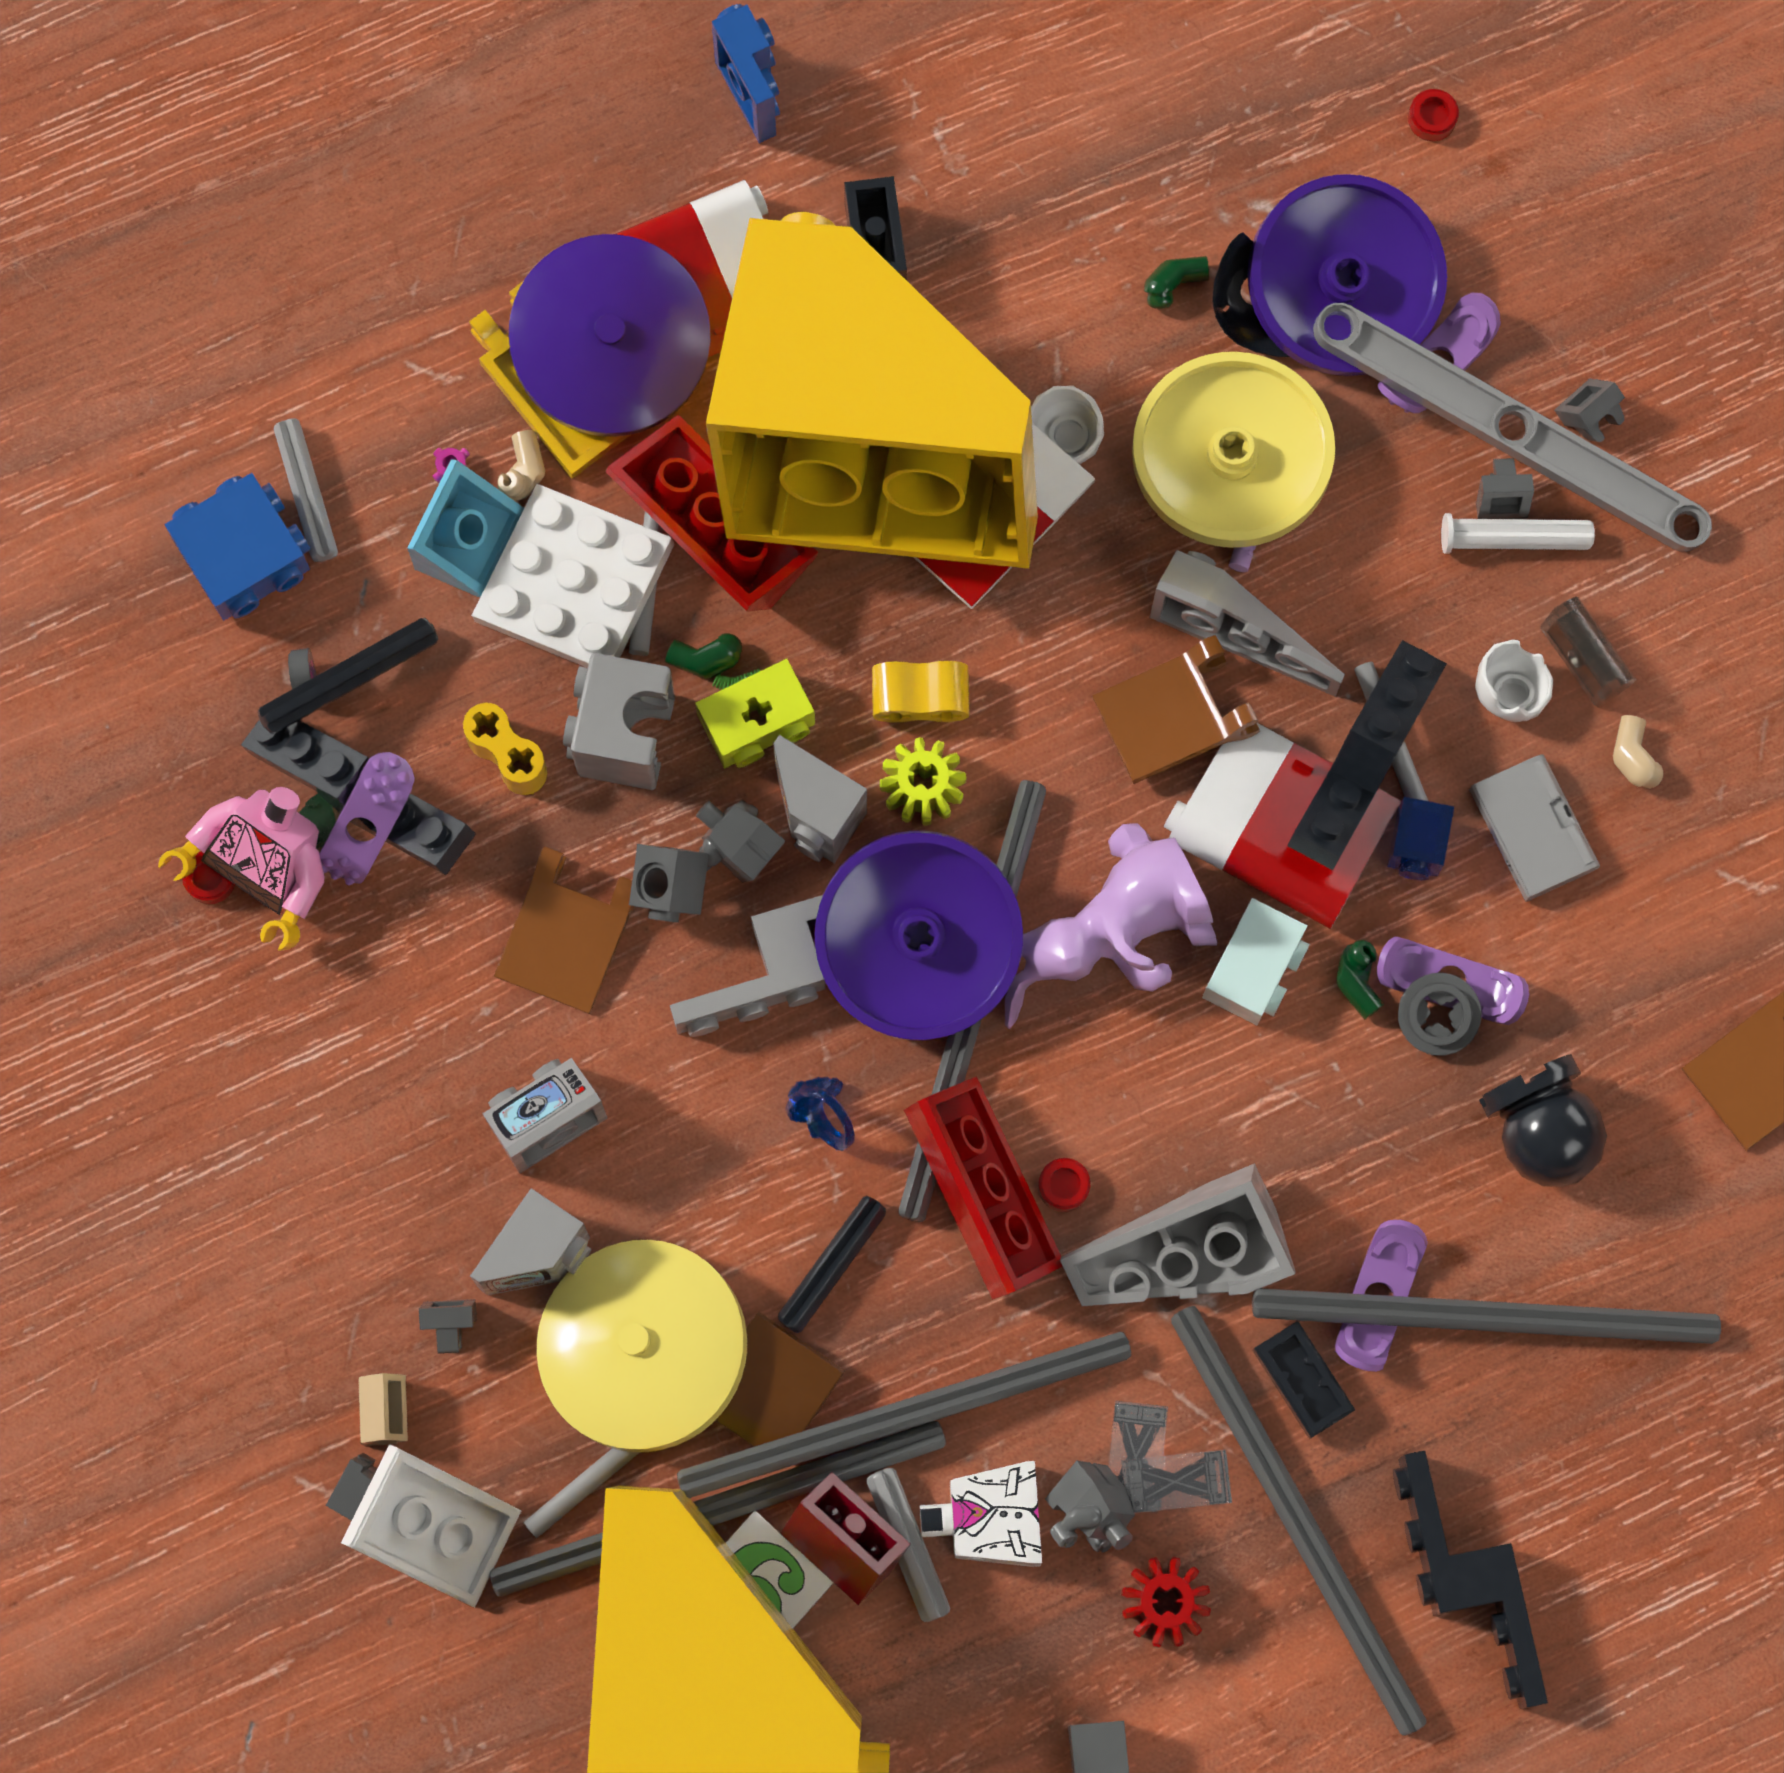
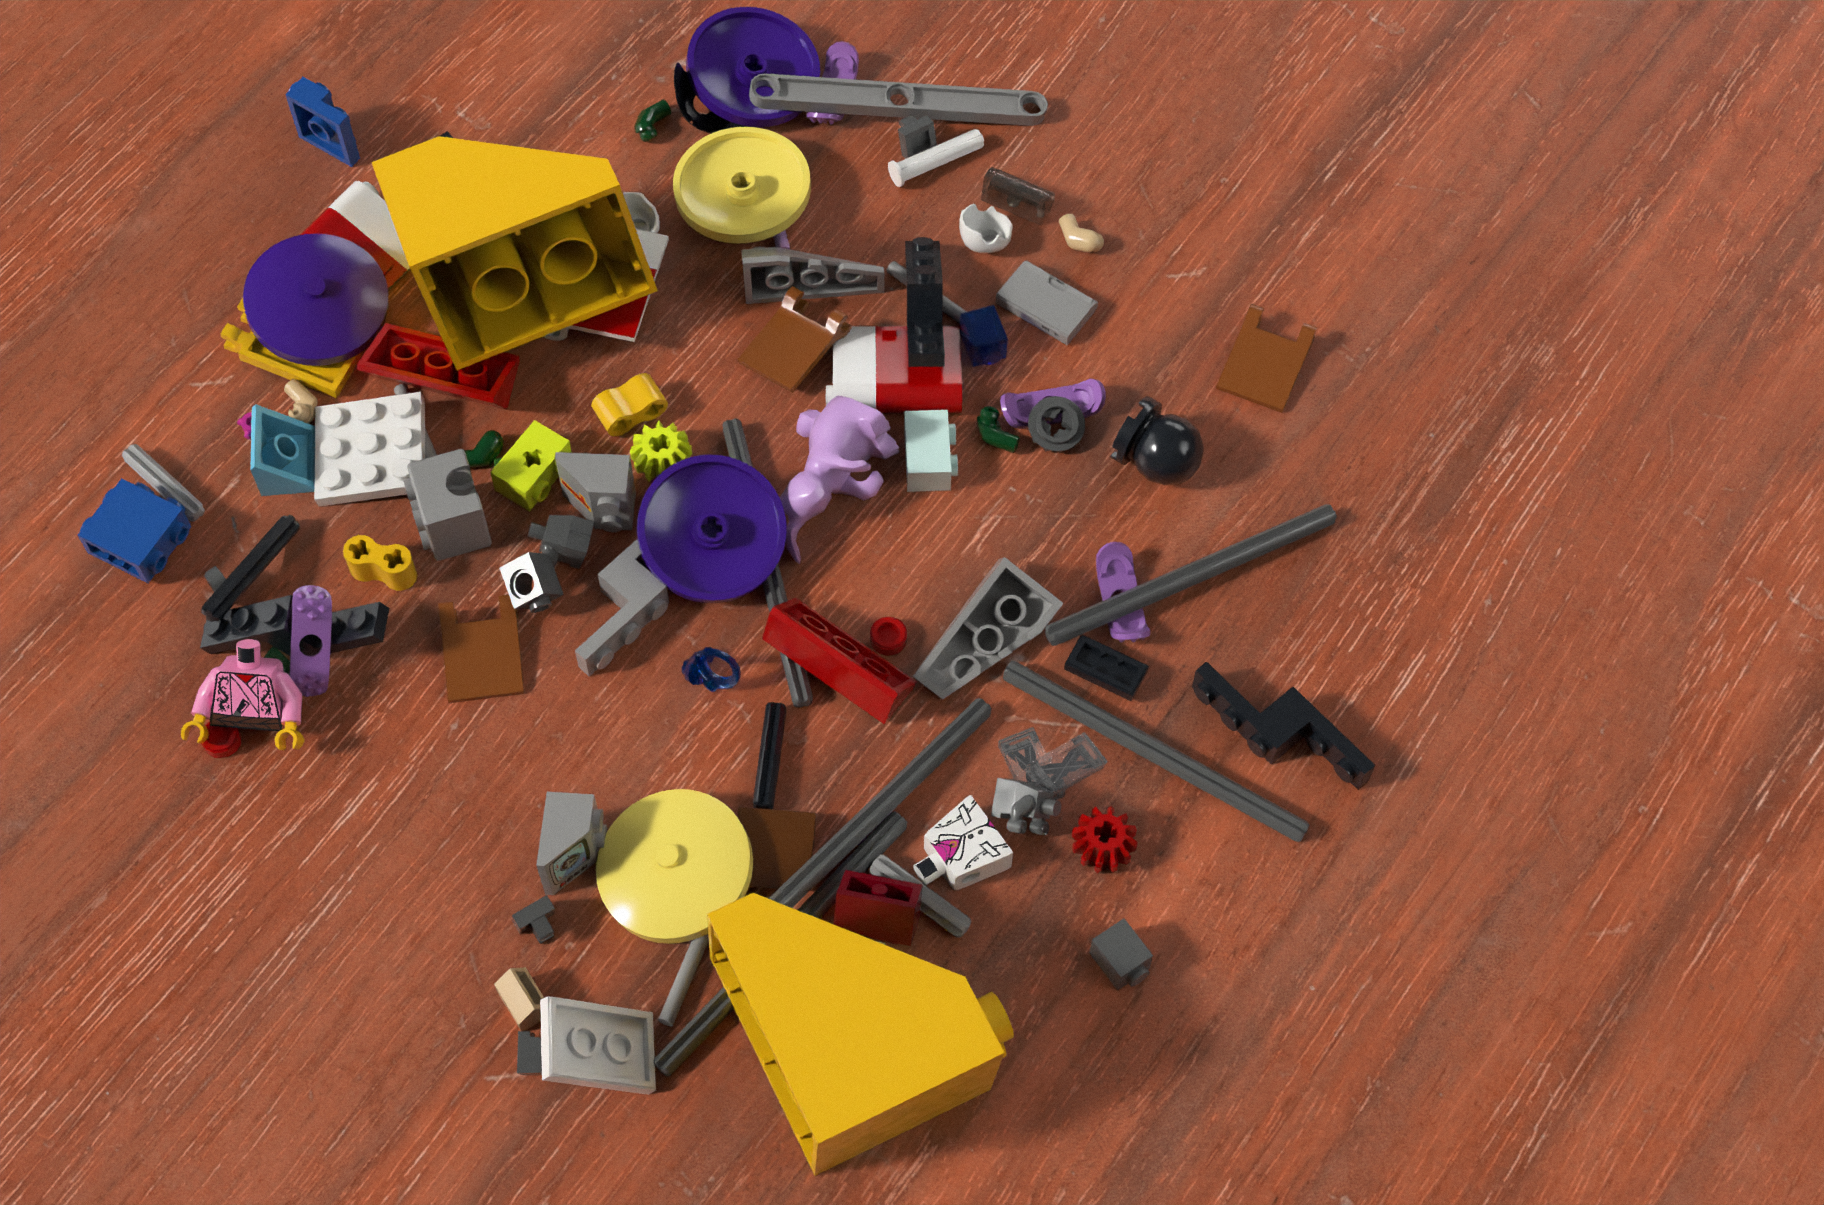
camera: 30 degrees left, 15 degrees down
(544, 1113) = (530, 758): light grey slope -> none
(1590, 405) = (939, 68): dark grey tile -> none

